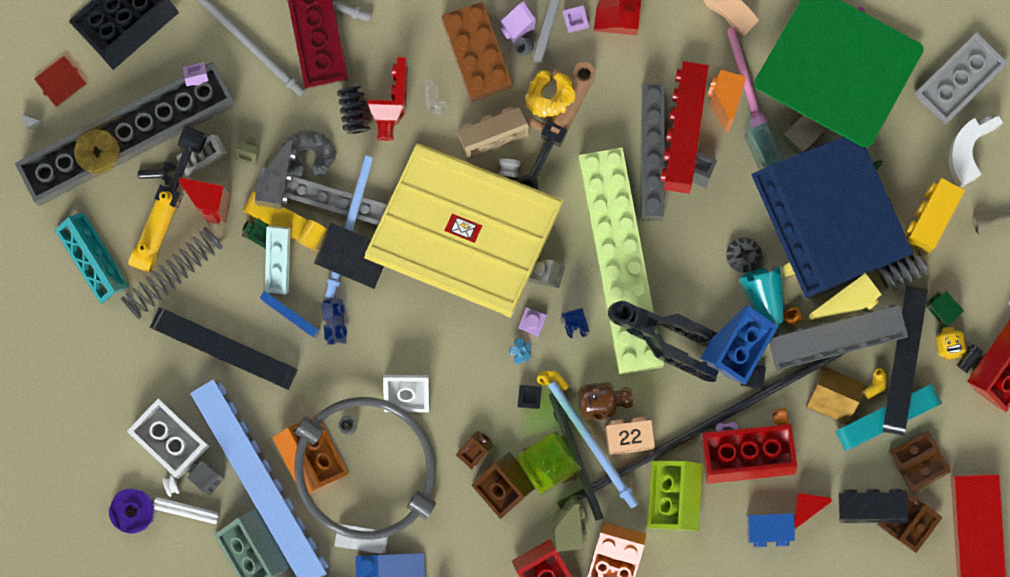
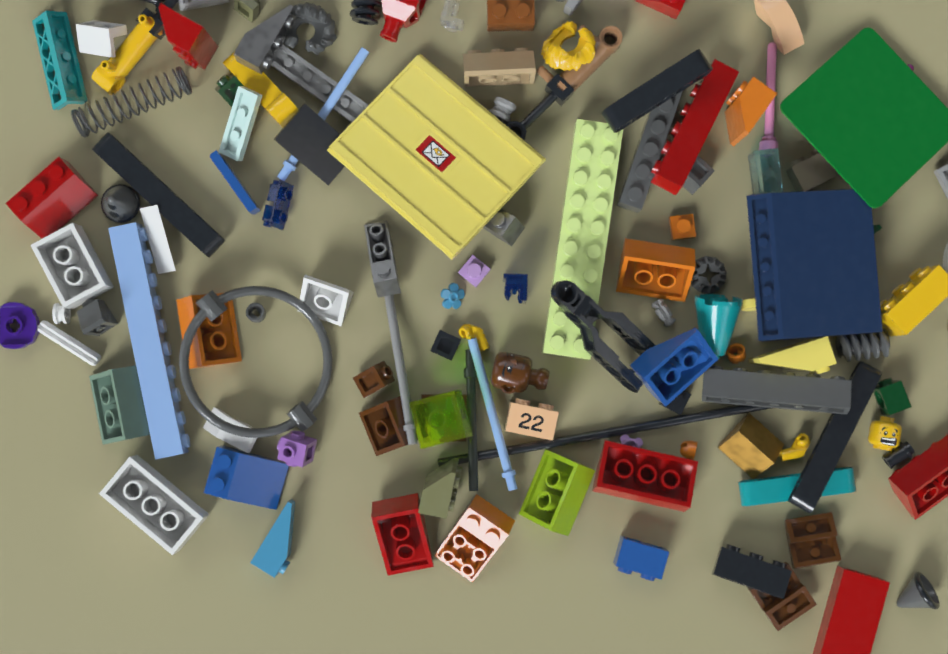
camera: 20 degrees right, 5 degrees up
(124, 224) = (97, 37): none -> white panel
(128, 384) = (52, 198): none -> red slope
(190, 368) = (120, 203): none -> dark grey hat
(236, 389) = (157, 239): none -> white sticker
(426, 535) = (296, 449): none -> medium lavender brick
(446, 338) = (382, 259): none -> flat silver slope
(523, 479) = (409, 425): none -> light grey bar
(641, 108) = (657, 91): none -> black beam
(695, 266) = (655, 270): none -> orange slope
(706, 219) = (682, 227): none -> orange plate
(715, 302) = (663, 312): none -> light grey piece
(807, 506) = (686, 548): red slope -> none

